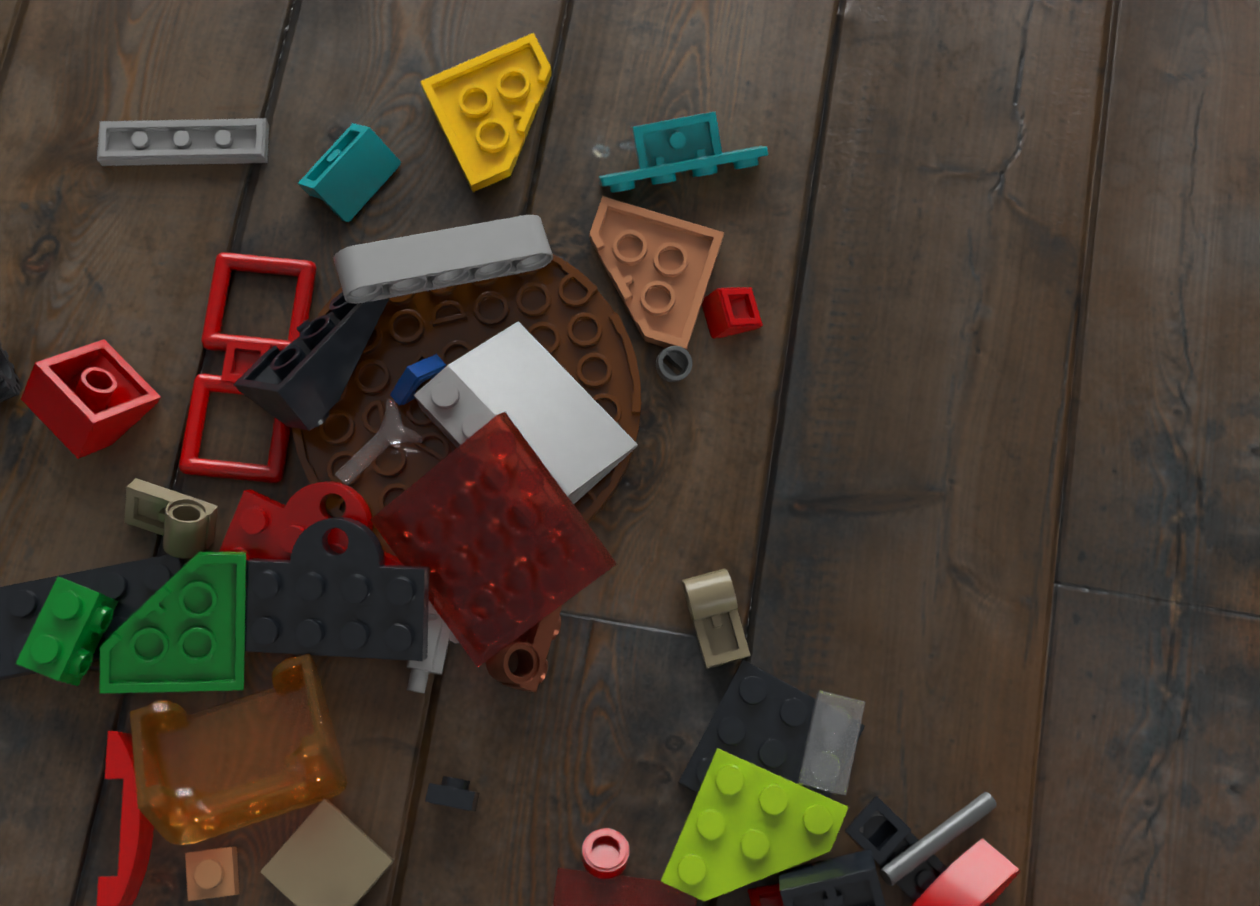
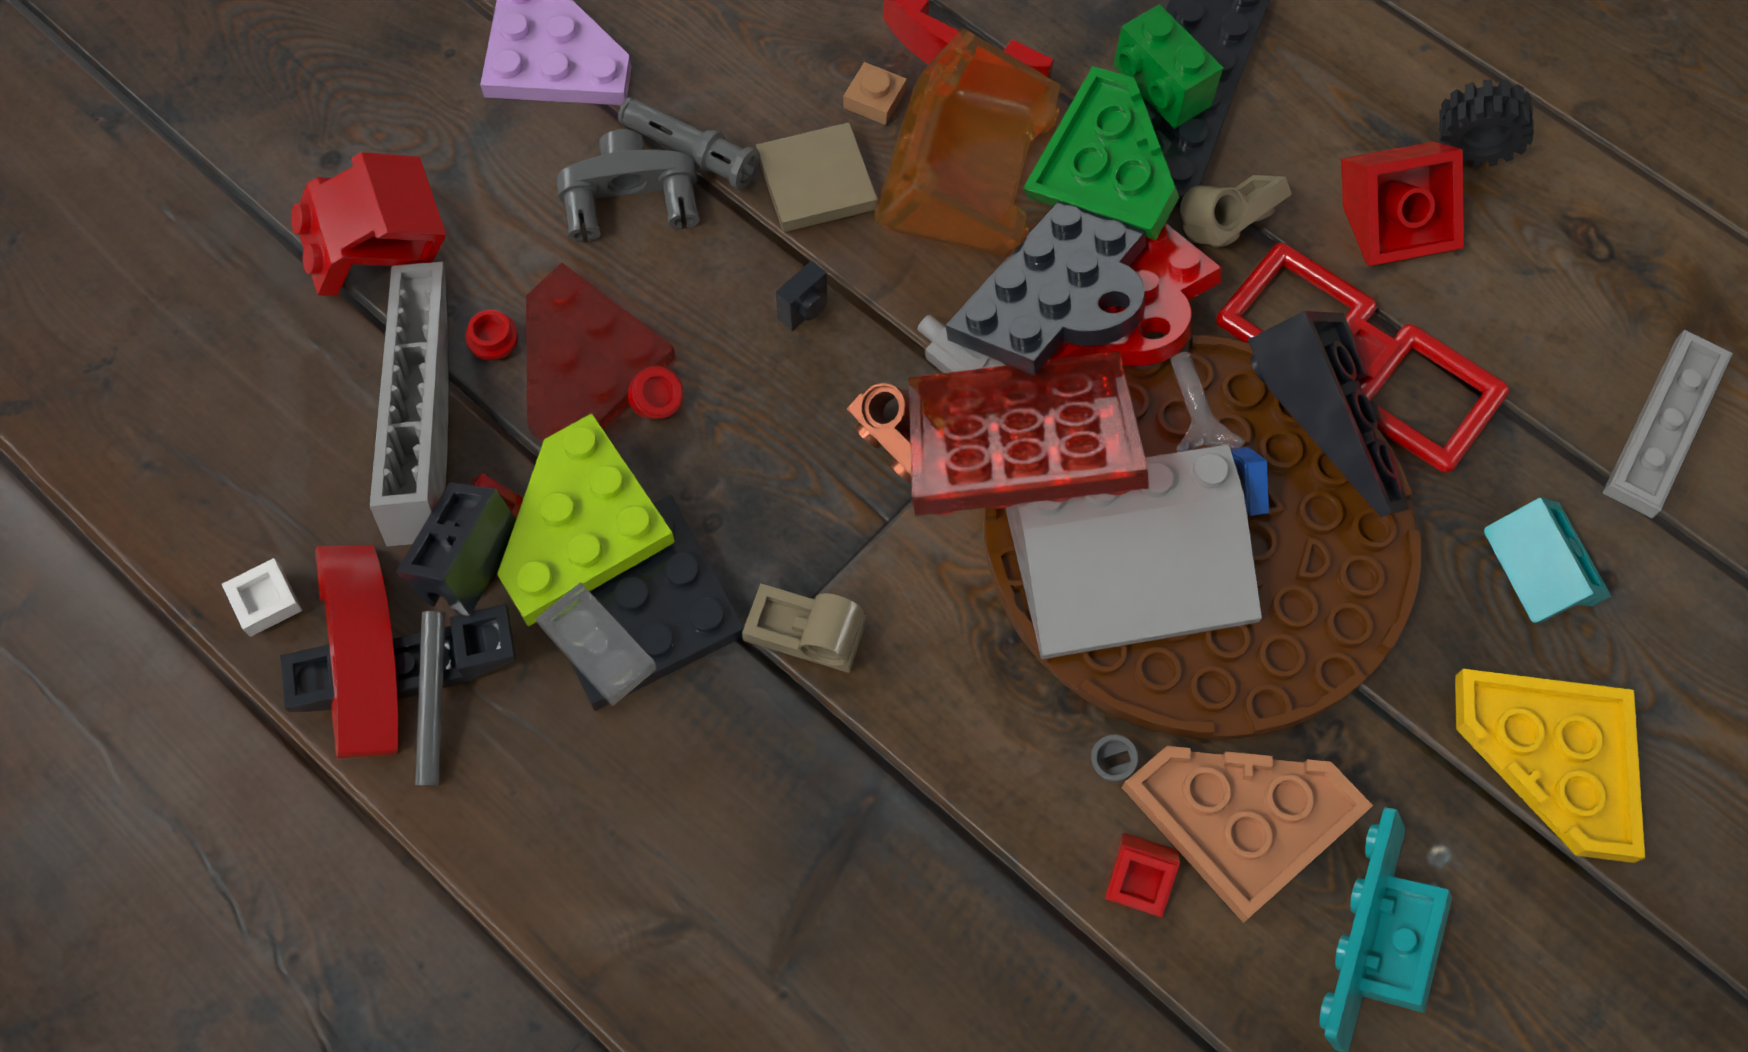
camera: 120 degrees right, 10 degrees down
(442, 258) = (1377, 567): light grey beam -> none

